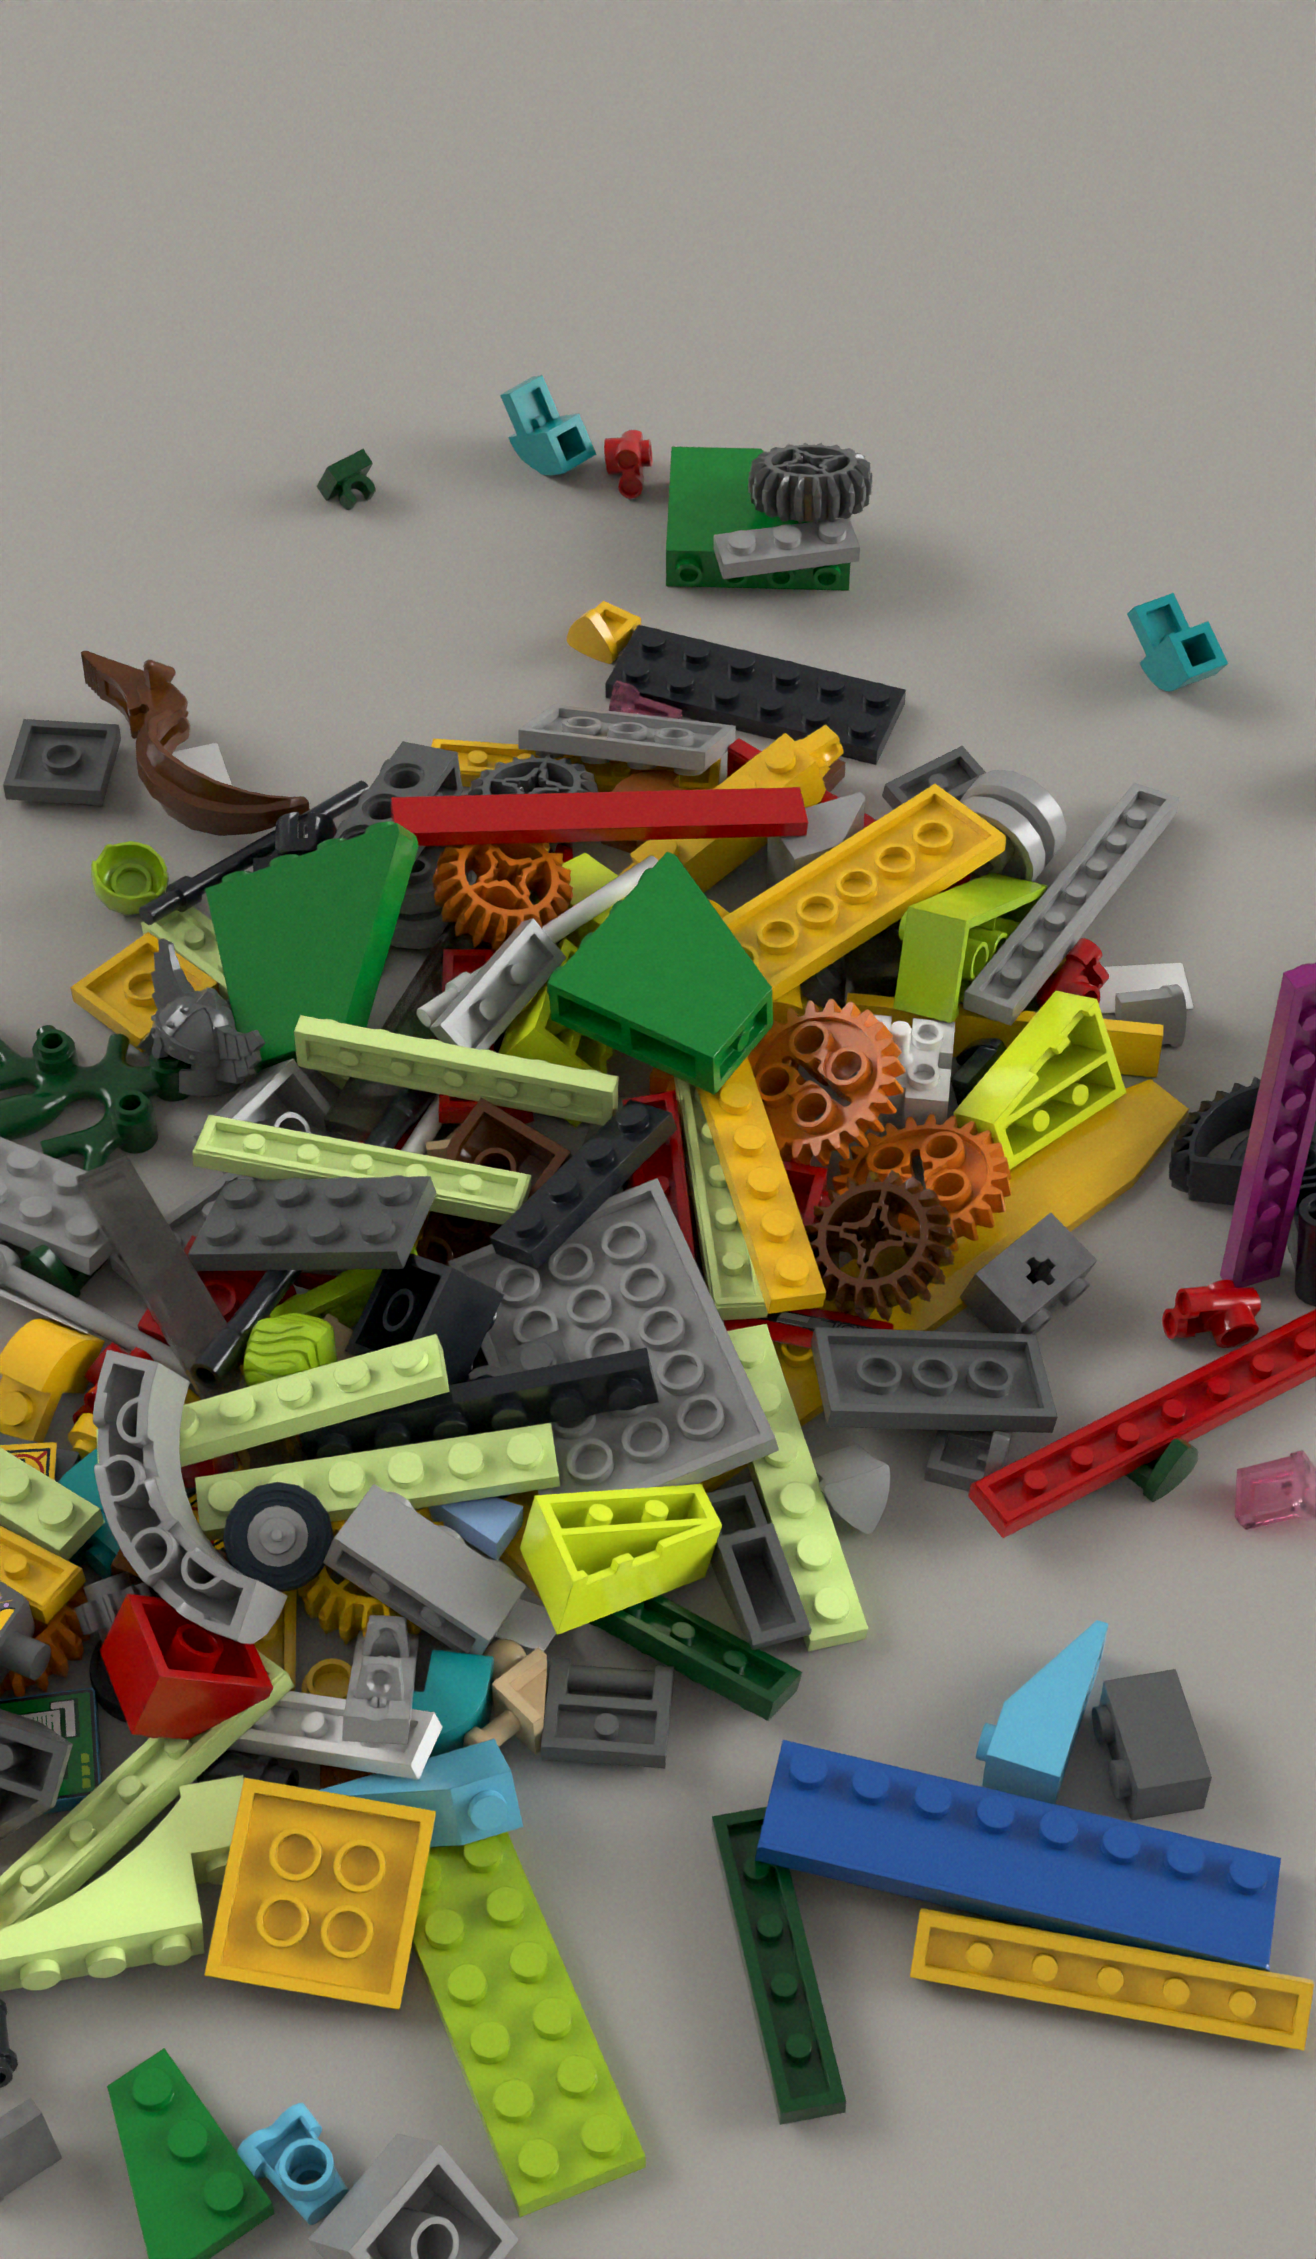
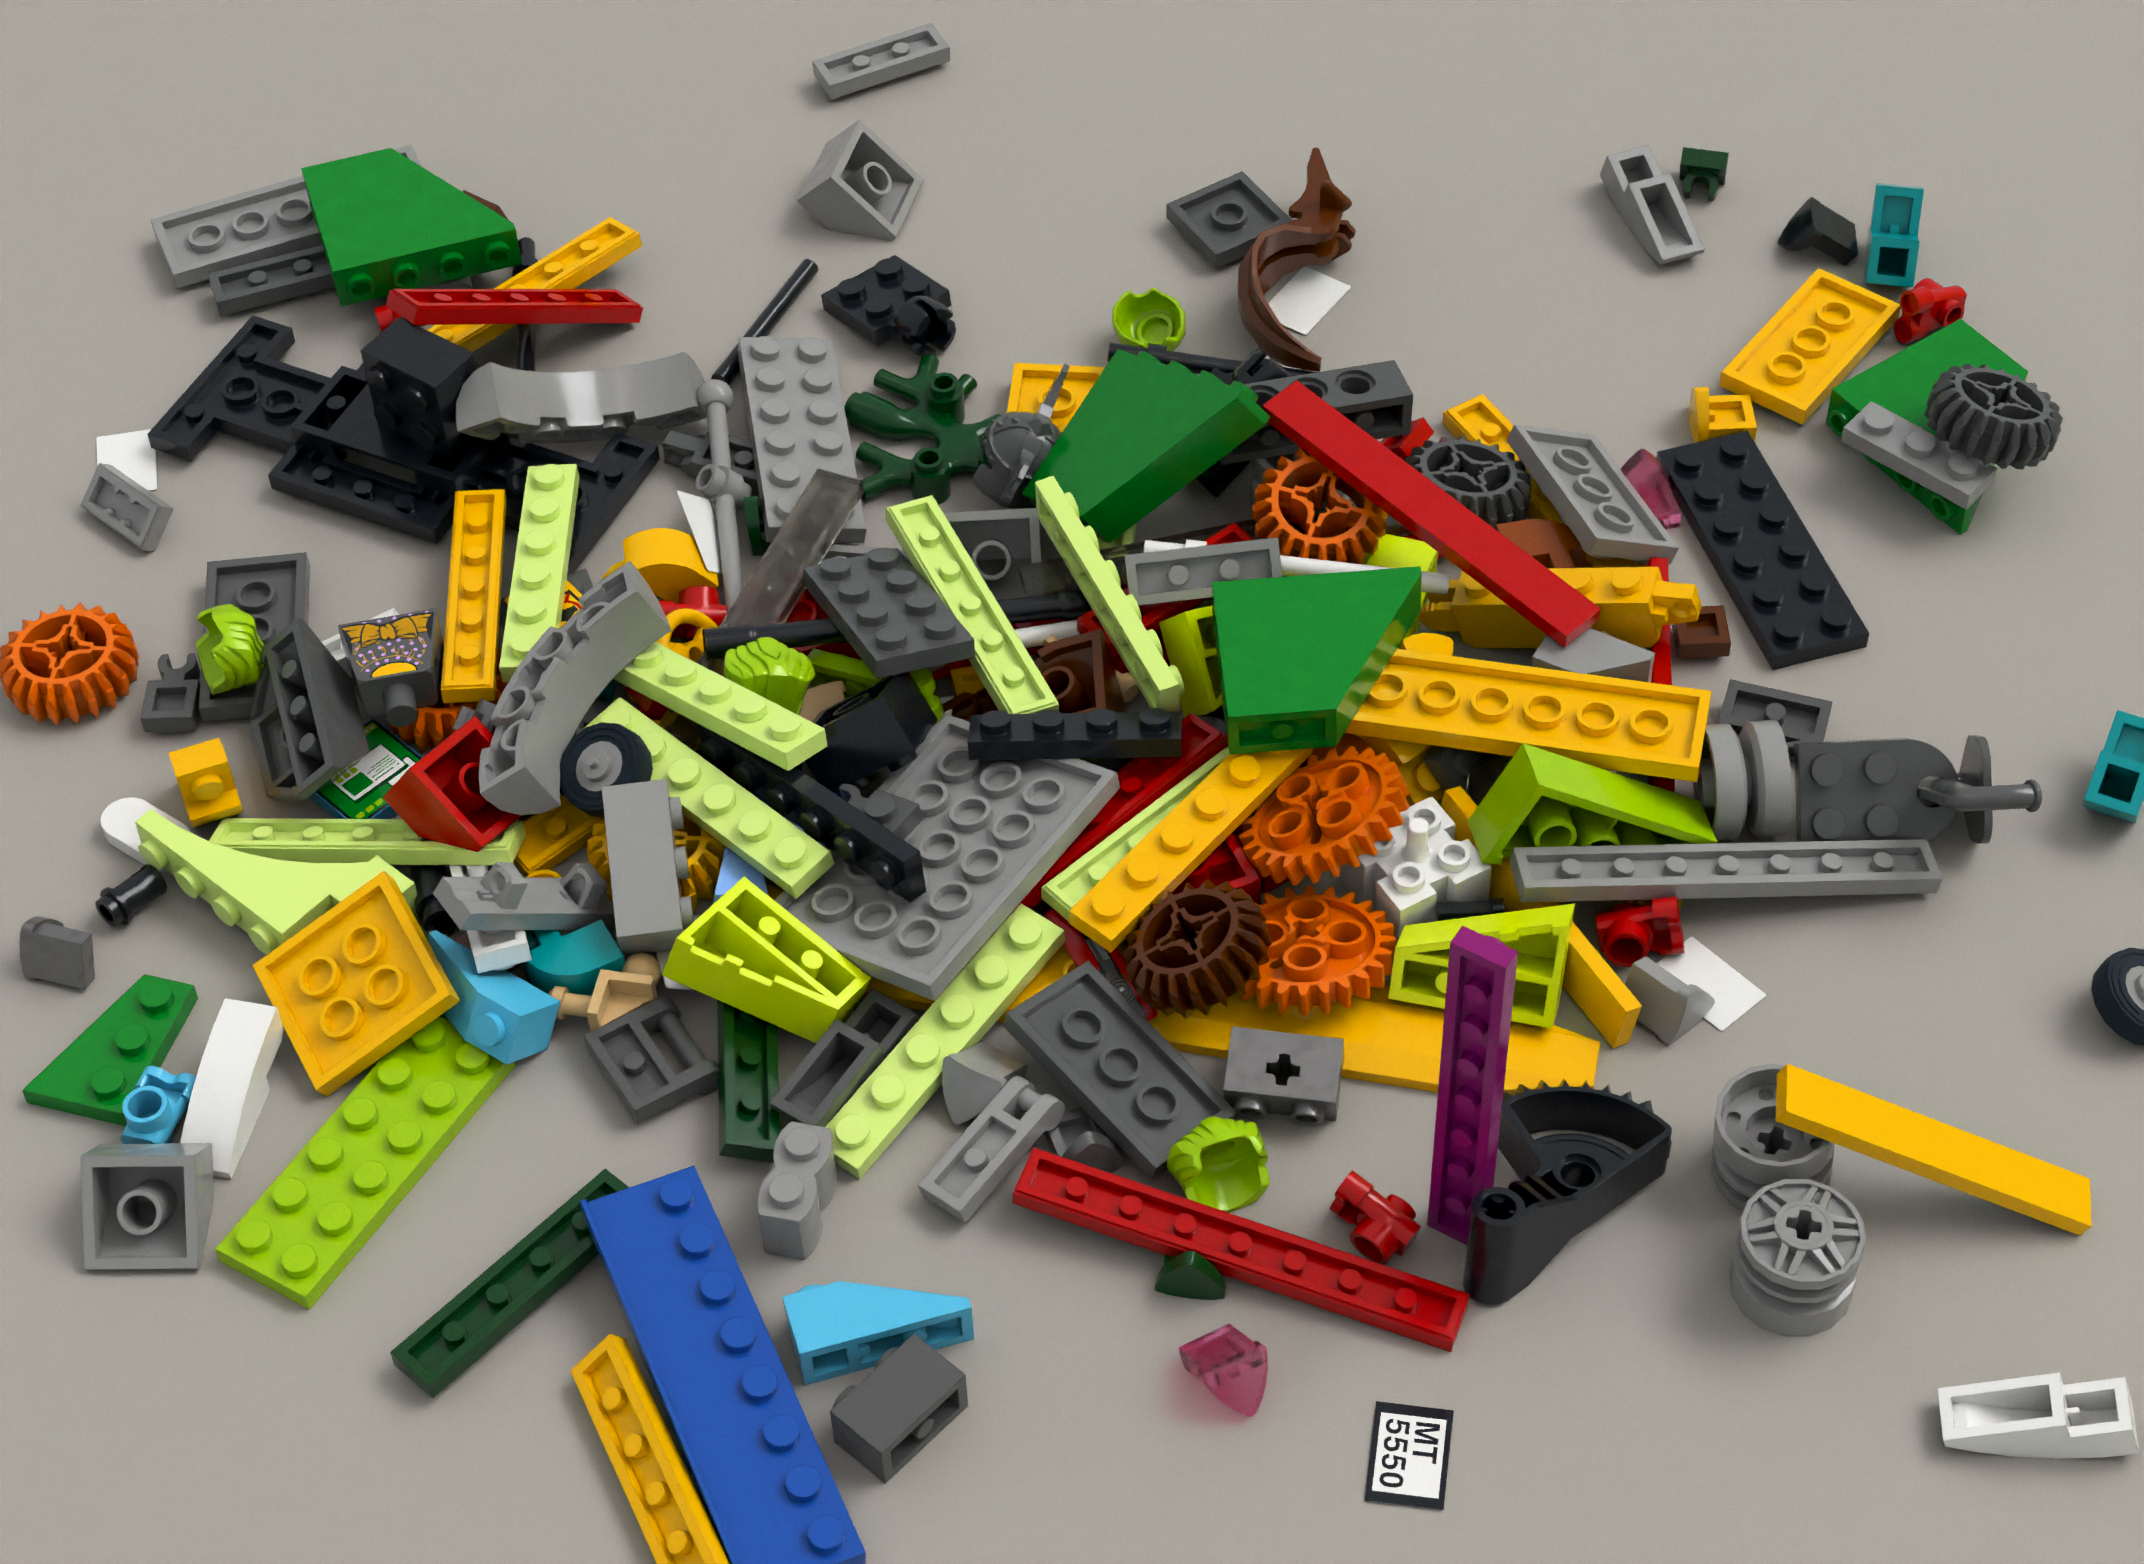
camera: 55 degrees right, 0 degrees up
(326, 2074) = (233, 1081): none -> white slope
(349, 528) = (1650, 205): none -> light grey slope
(481, 461) = (1822, 229): none -> black tile
(591, 540) = (1810, 345): none -> yellow plate
(863, 1683) = (797, 1190): none -> light grey brick
(934, 1521) = (990, 1148): none -> light grey plate
(1084, 1372) = (1221, 1163): none -> lime hair
(1092, 754) = (1874, 787): none -> dark grey plate

